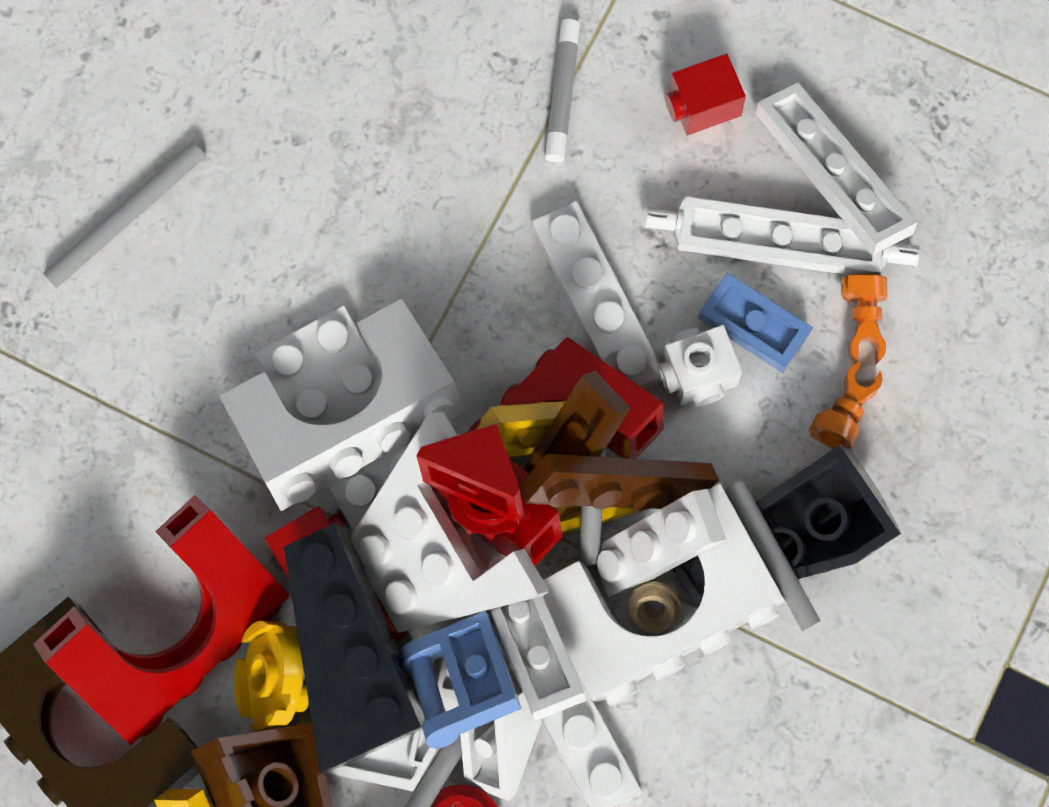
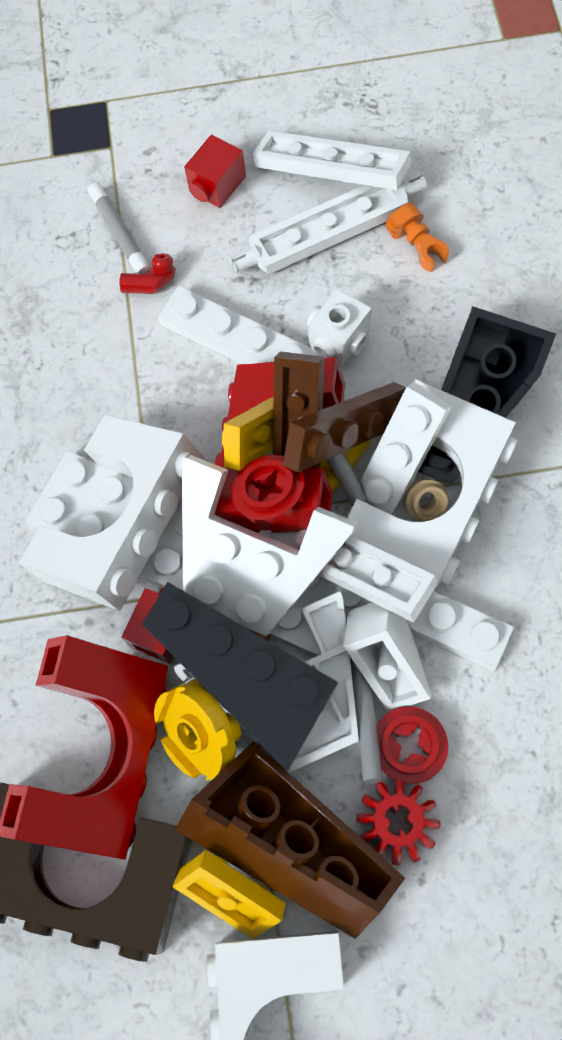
camera: 30 degrees left, 5 degrees down
(475, 470) = (247, 471): red slope -> none
(476, 673) = (347, 616): medium blue plate -> none
(555, 175) = (152, 280): none -> red arm
(755, 322) = (363, 280): medium blue plate -> none
(772, 555) = (523, 427): light grey bar -> none
(839, 424) = (454, 307): orange piece -> none

